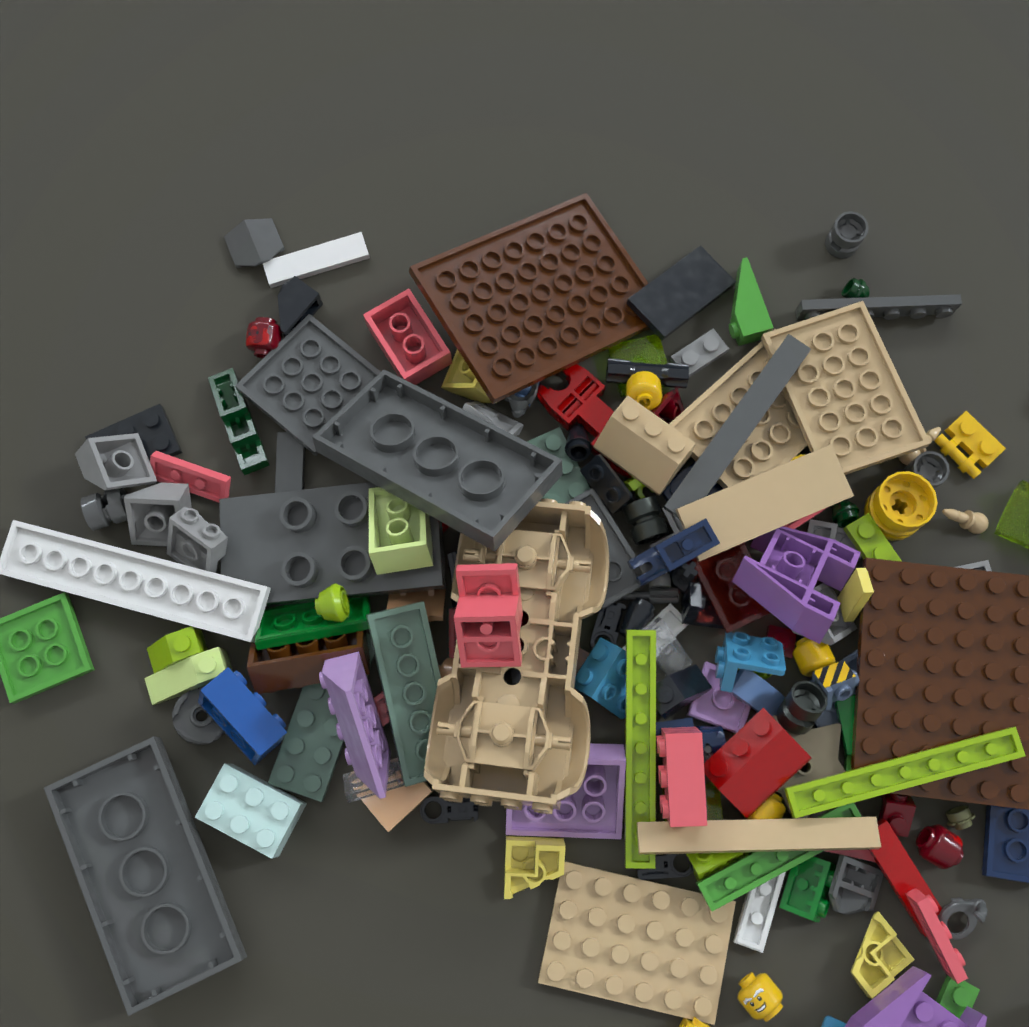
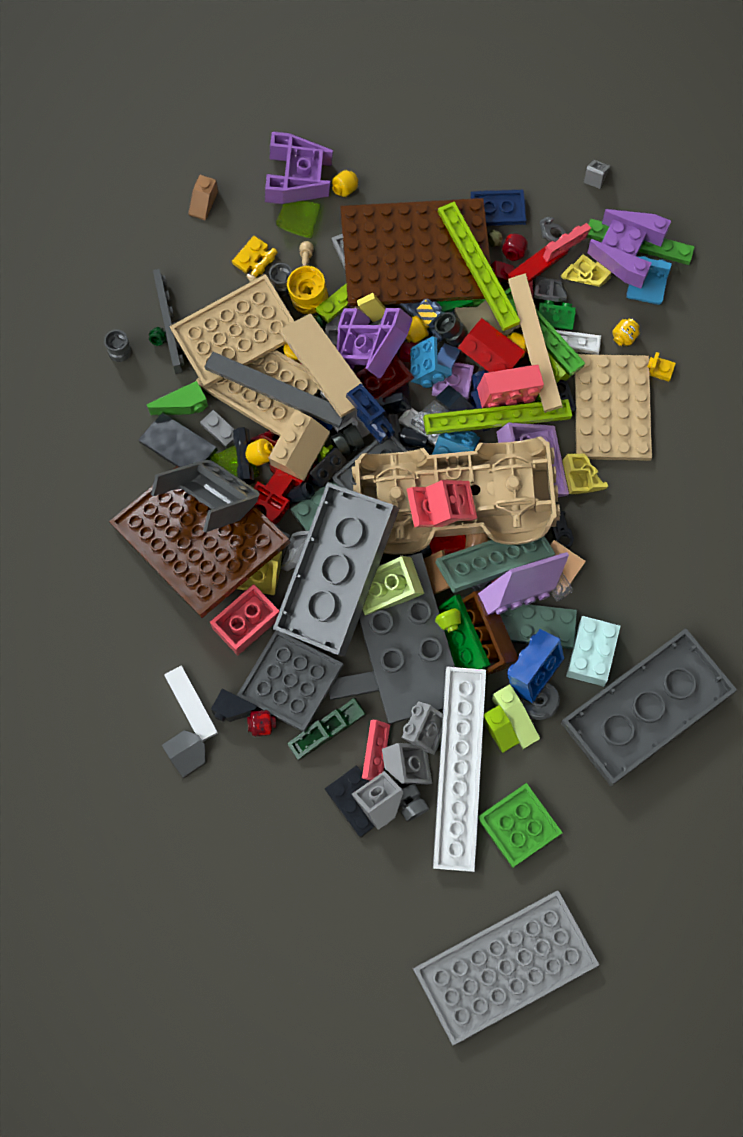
camera: 100 degrees left, 5 degrees down
(596, 320) = (213, 486): none -> dark grey windscreen

